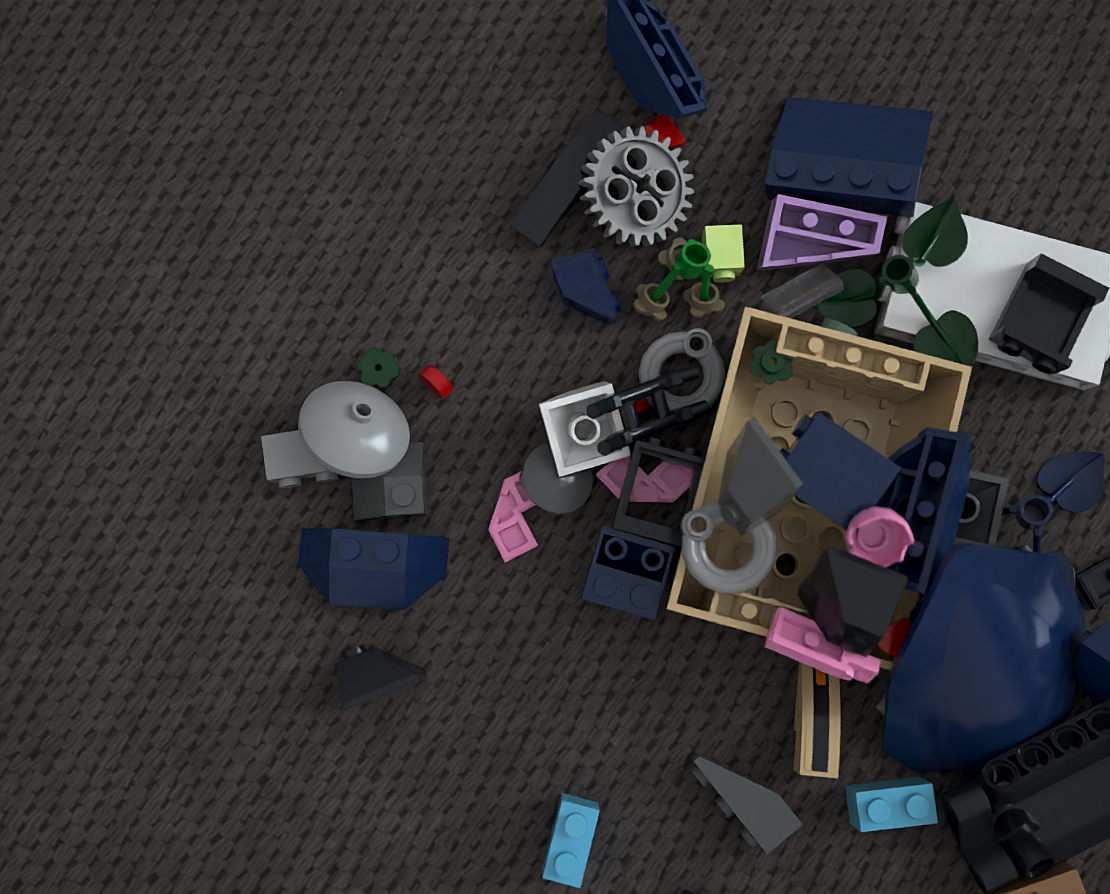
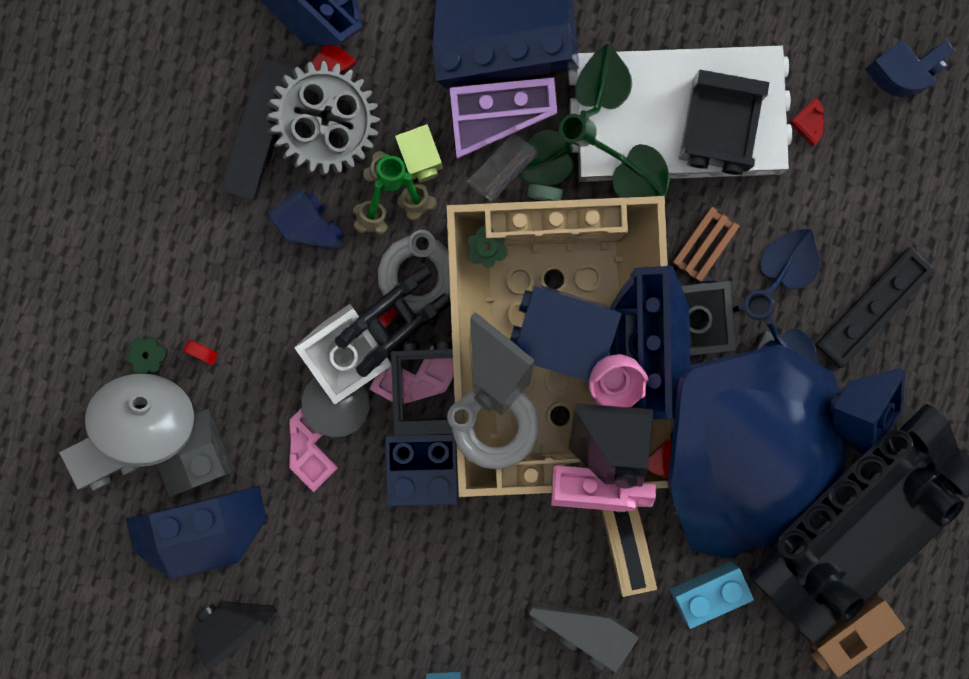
camera: 15 degrees left, 5 degrees up
(1011, 418) = (722, 221): none -> nougat tile

